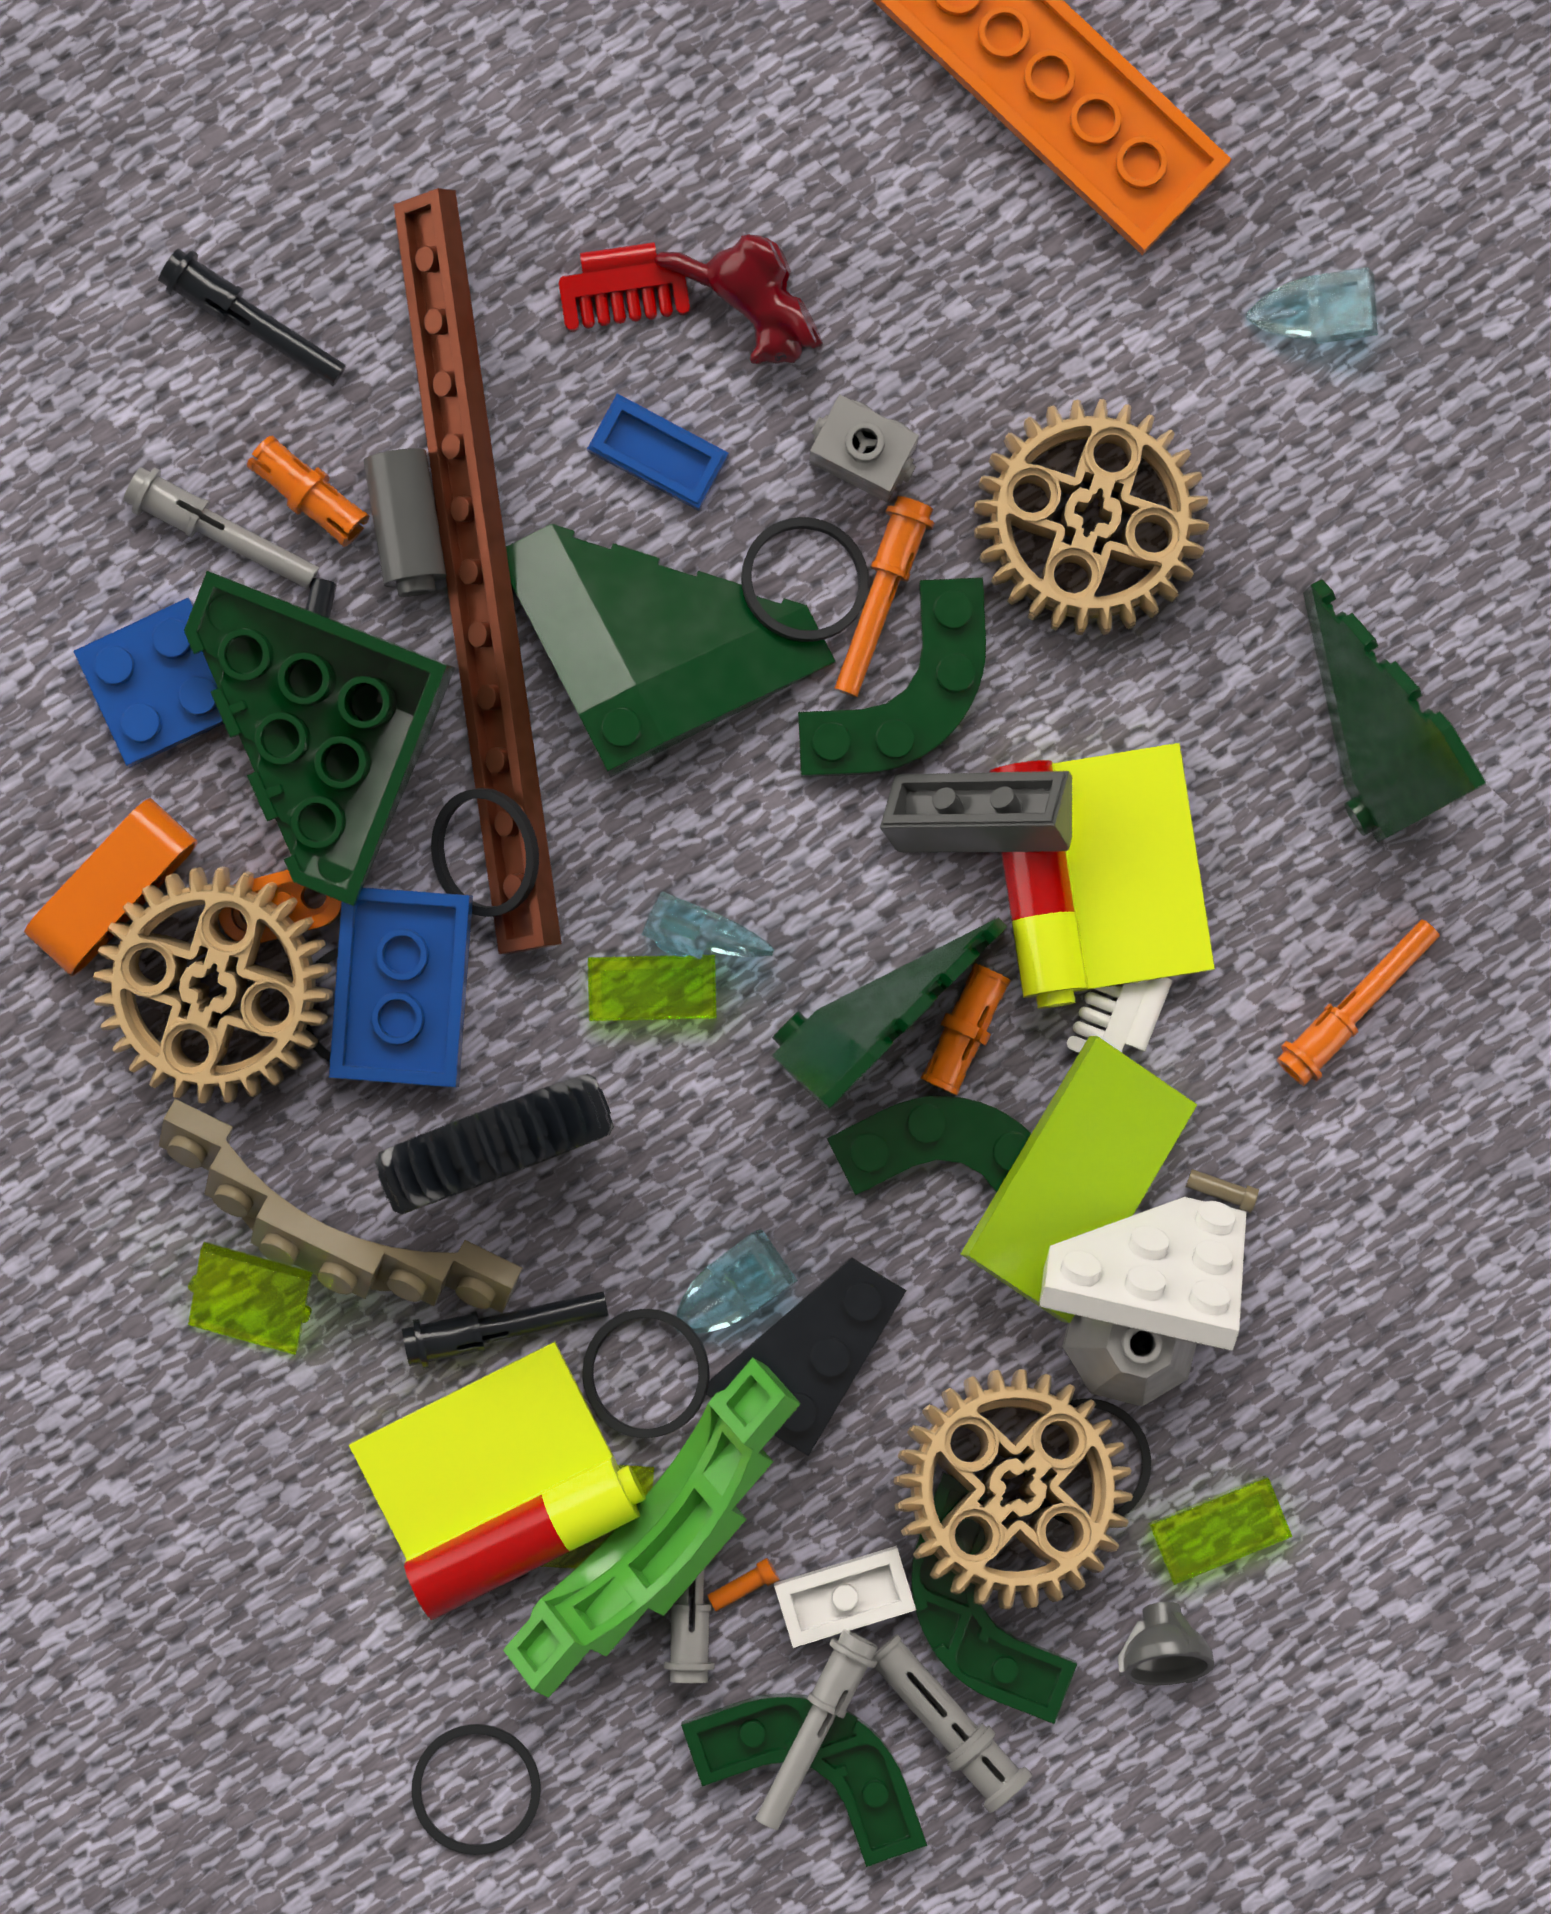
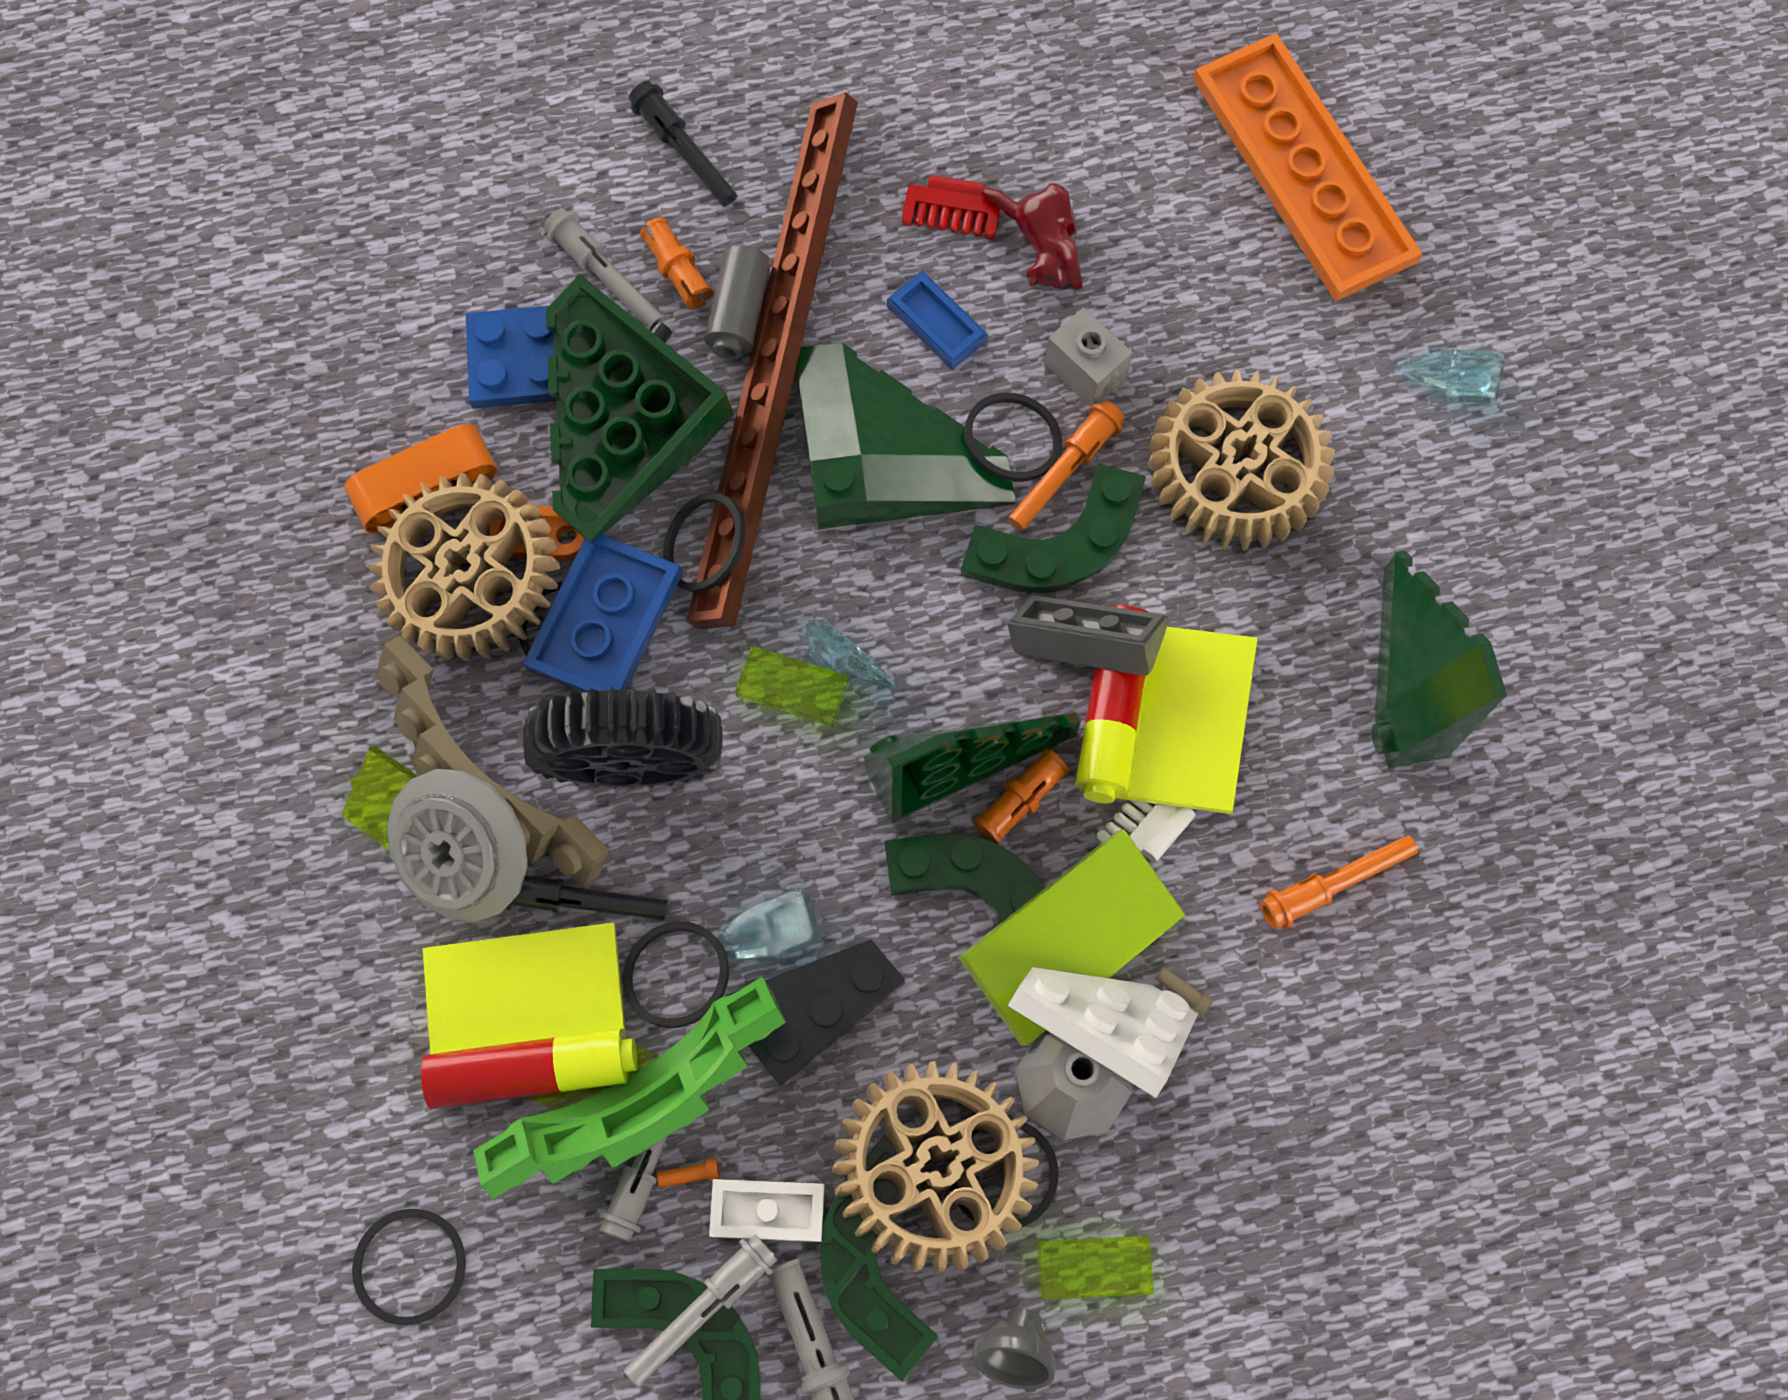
camera: 20 degrees right, 15 degrees down
(332, 1289) = (457, 845): none -> light grey piece

